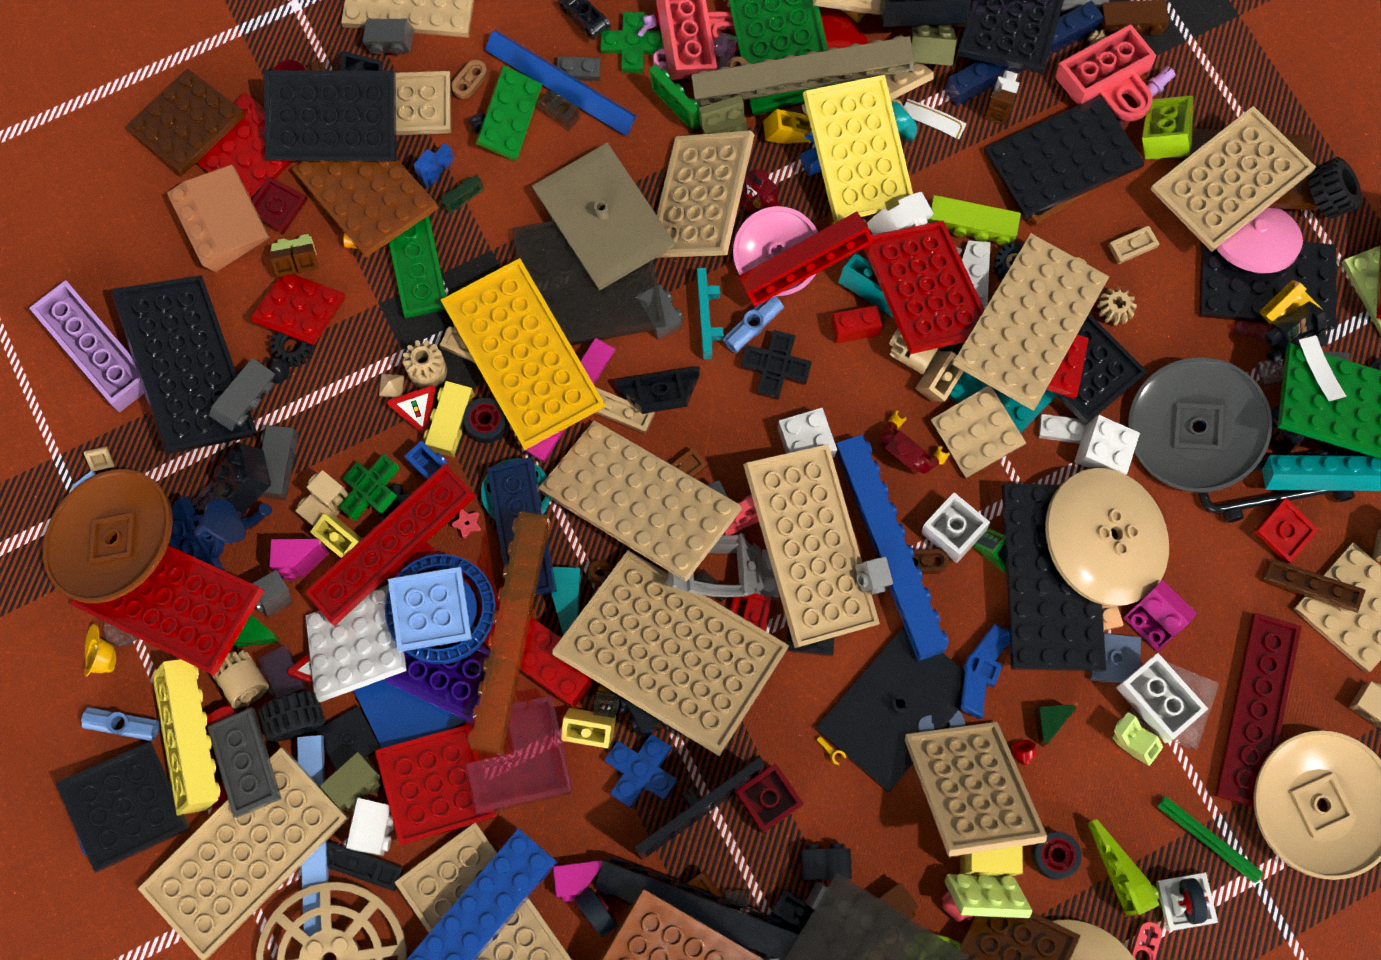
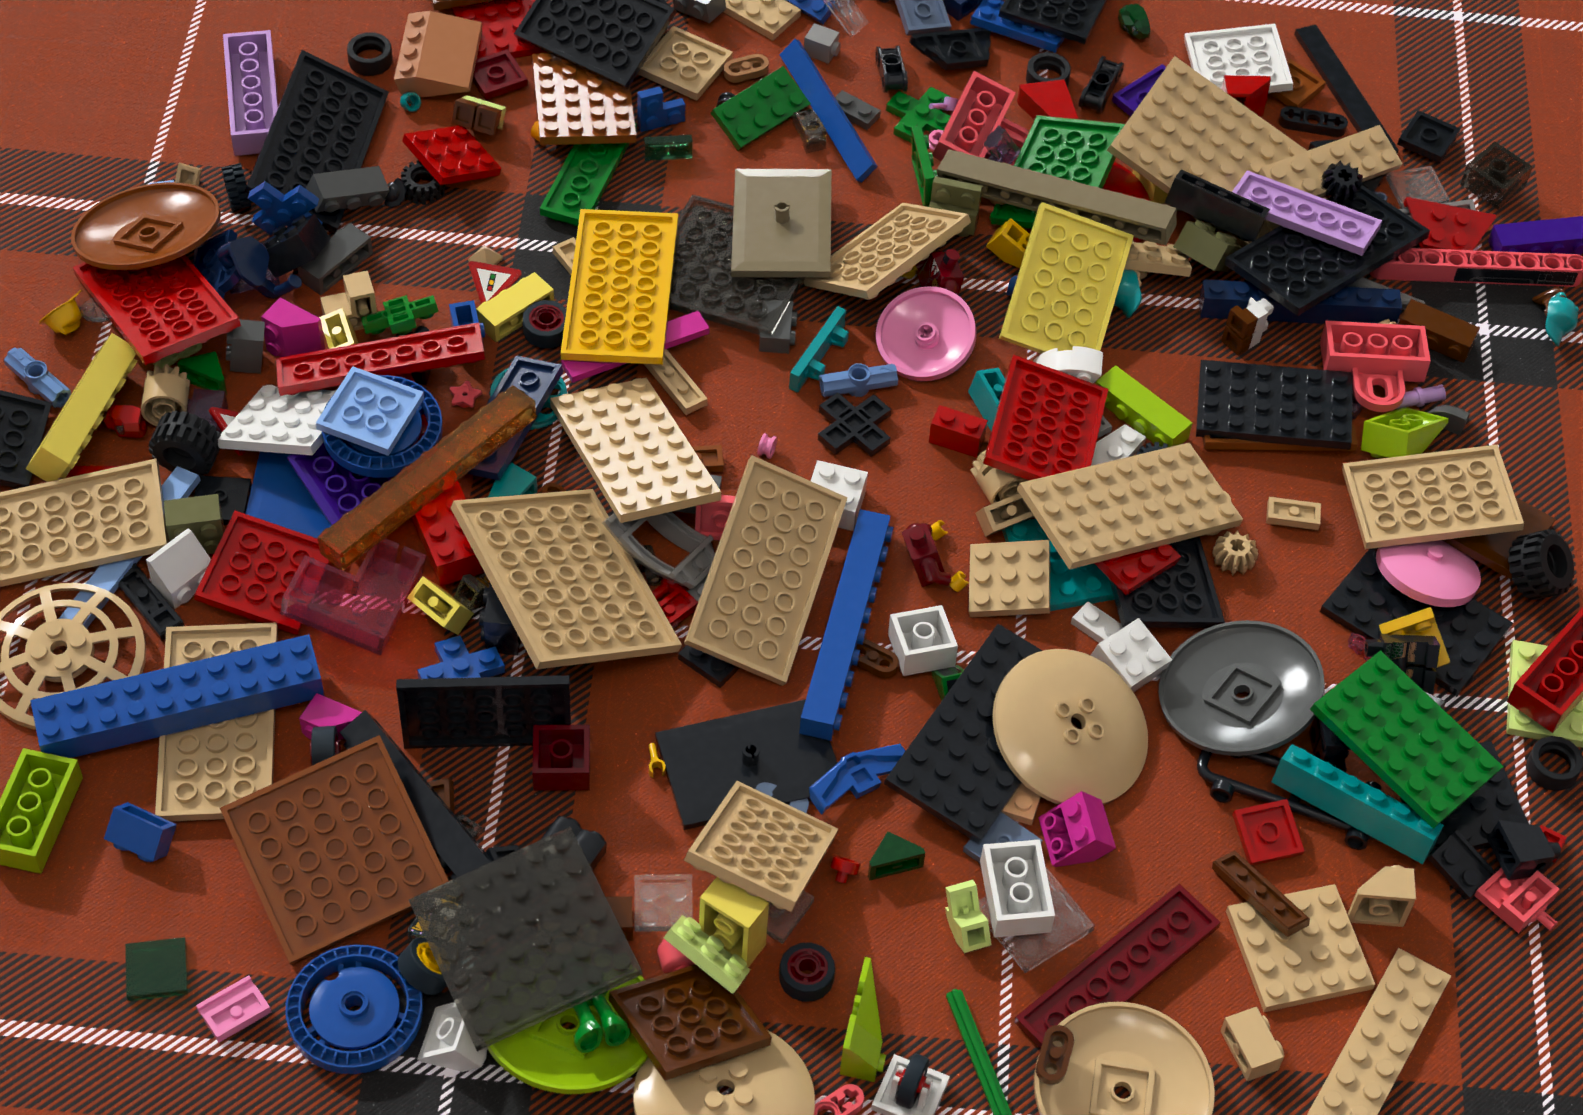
camera: 30 degrees right, 20 degrees down
(147, 446) = (235, 186): none -> black bush
(152, 233) = (369, 41): none -> black tyre
(199, 454) = (280, 208): none -> blue plate
(229, 270) = (413, 99): none -> teal hinge
(244, 763) = (115, 453): dark grey tile -> none
(425, 365) = (527, 249): tan gear -> none
(513, 20) = (822, 43): none -> light grey brick
(659, 390) = (727, 385): black wing -> none
(726, 425) = (767, 446): none -> bright pink bush
(806, 258) = (944, 344): red brick -> none
(874, 575) = (808, 630): light grey brick -> none
(919, 866) = (662, 900): none -> clear plate
(935, 118) = (1170, 315): white sticker -> none
(1188, 88) = (1457, 417): none -> dark grey brick
(1274, 816) = (1054, 1056): none -> reddish brown plate
(1321, 368) = (1395, 684): white sticker -> none

